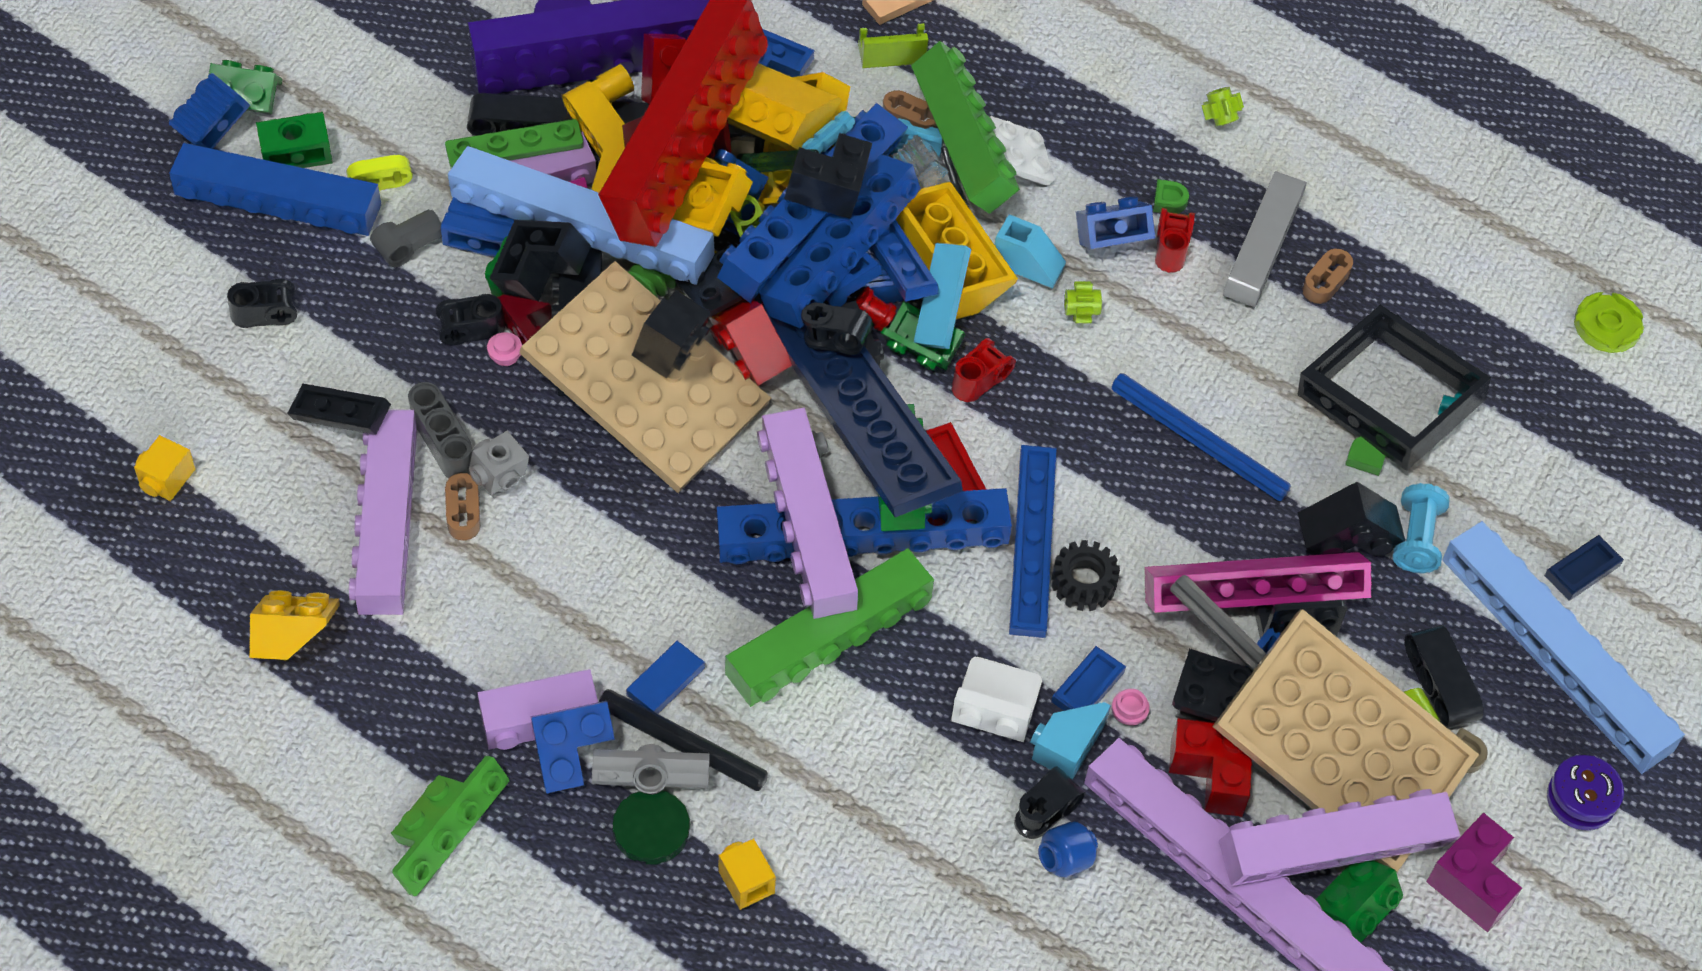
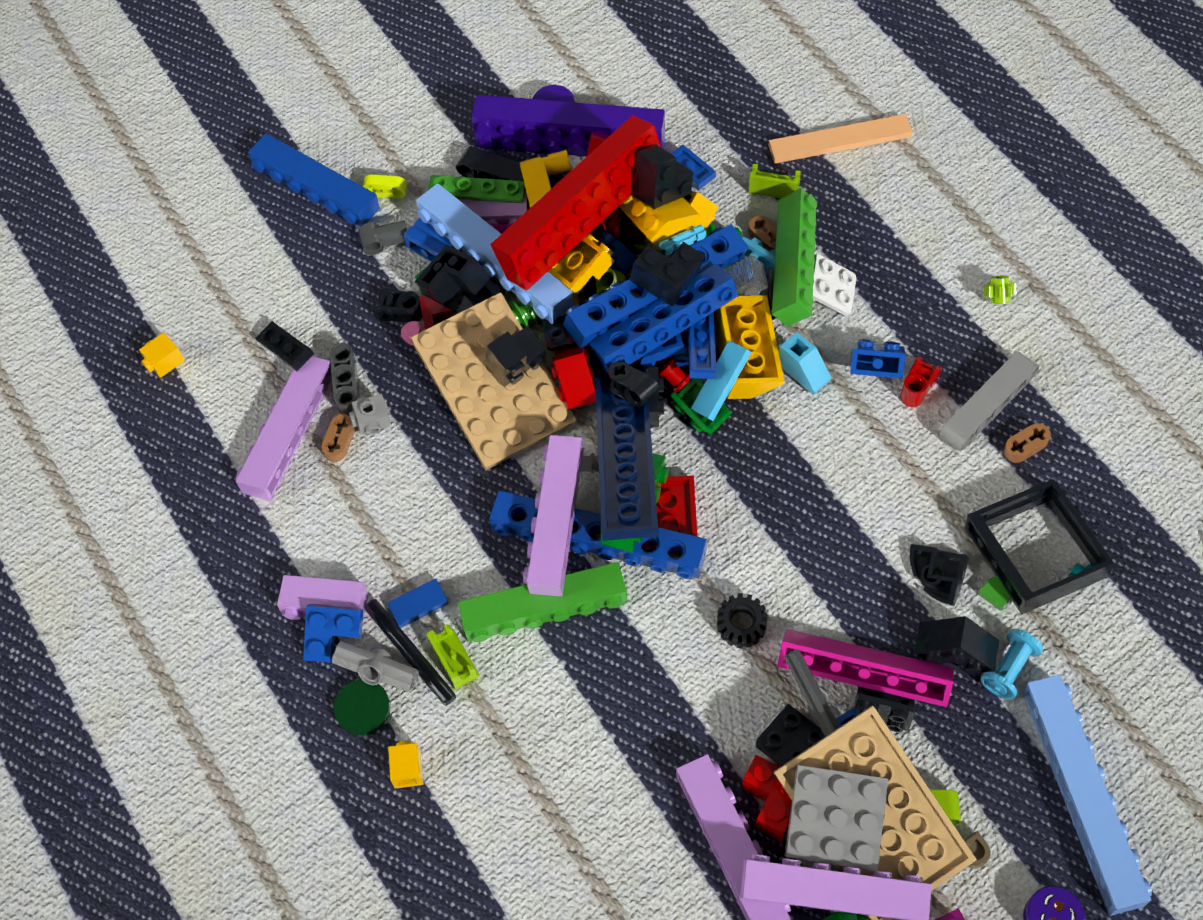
camera: 30 degrees right, 5 degrees up
(209, 112) = (291, 116): blue brick -> none
(253, 86) = (323, 104): green bracket -> none
(259, 304) = (271, 257): black piece -> none
(287, 622) = (188, 485): yellow slope -> none
(295, 140) = (340, 150): green brick -> none
(442, 821) = (227, 658): bright green bracket -> none
(741, 729) = (452, 656): none -> lime hinge
(775, 62) = (660, 177): none -> black brick
(980, 371) = (737, 440): red piece -> none
(997, 698) = (637, 693): white bracket -> none
(1033, 542) = (716, 582): blue tile -> none
(1047, 803) = (643, 782): black piece -> none
(1068, 849) = (638, 825): blue head -> none
(1069, 737) = (676, 740): medium azure slope -> none
(1082, 302) = (828, 412): lime gear -> none
(1089, 681) = (710, 703): blue tile -> none
(1130, 707) = (732, 731): bright pink plate -> none
(1170, 196) = (932, 349): bright green tile -> none
(1201, 437) = (875, 541): blue axle -> none
(1290, 451) = (939, 572): none -> black brick
(1307, 752) = (836, 817): none -> light grey plate
(1444, 676) = (980, 786): black beam -> none
(1584, 567) = (1133, 734): dark blue tile -> none

